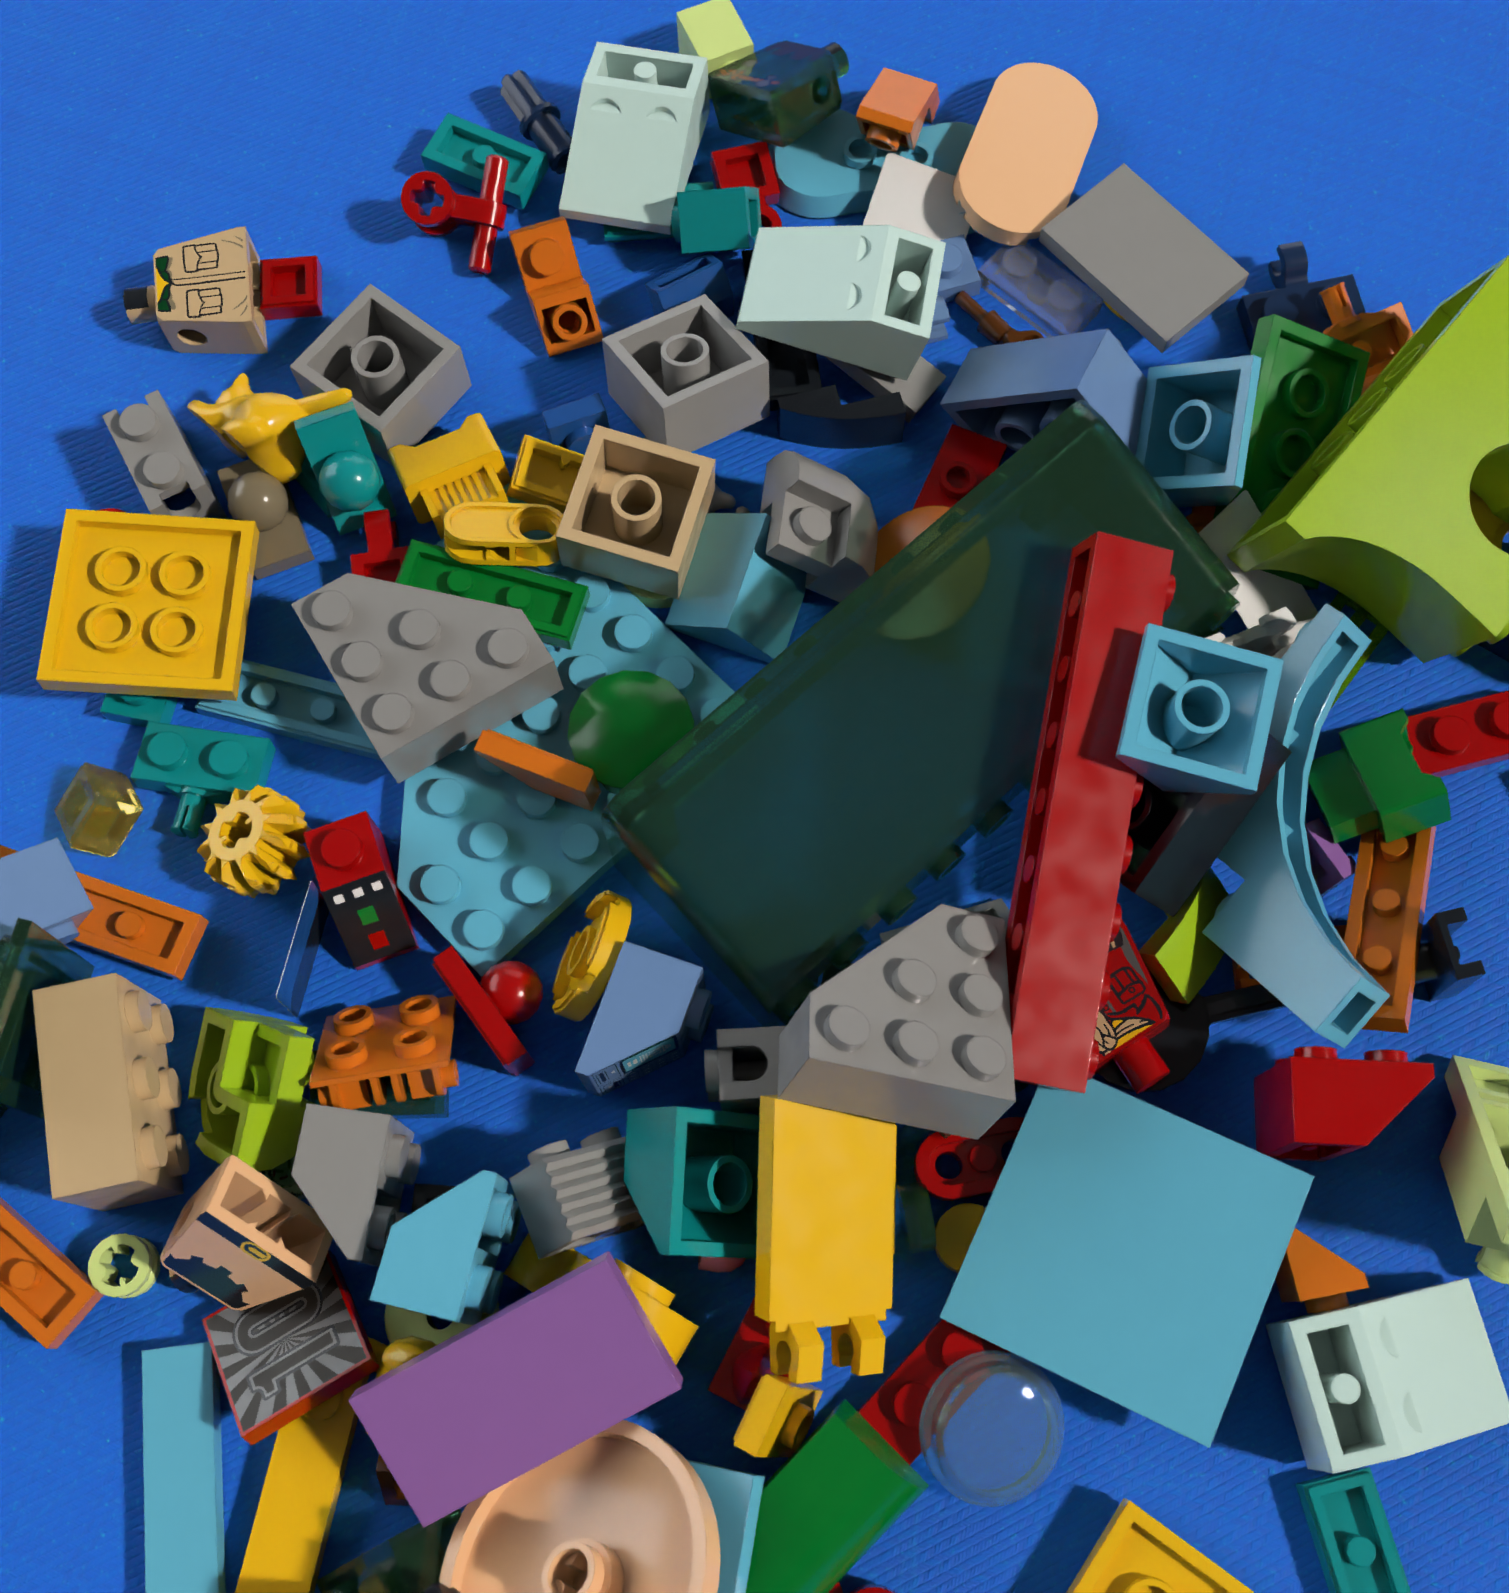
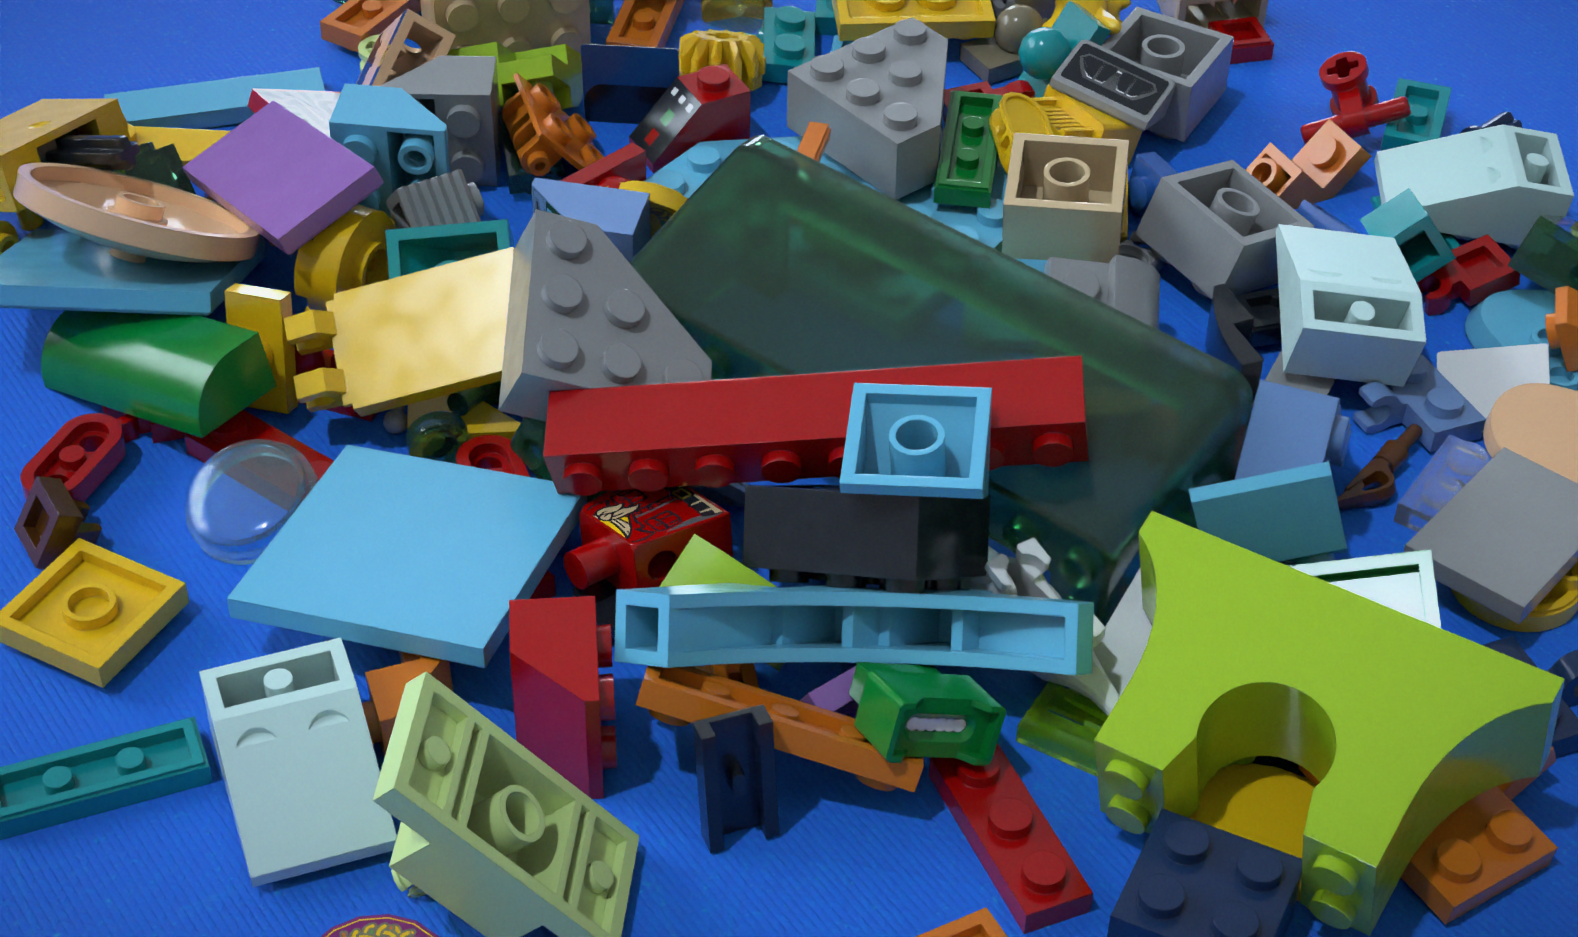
camera: 80 degrees right, 30 degrees down
(431, 424) = (1114, 85): none -> slope

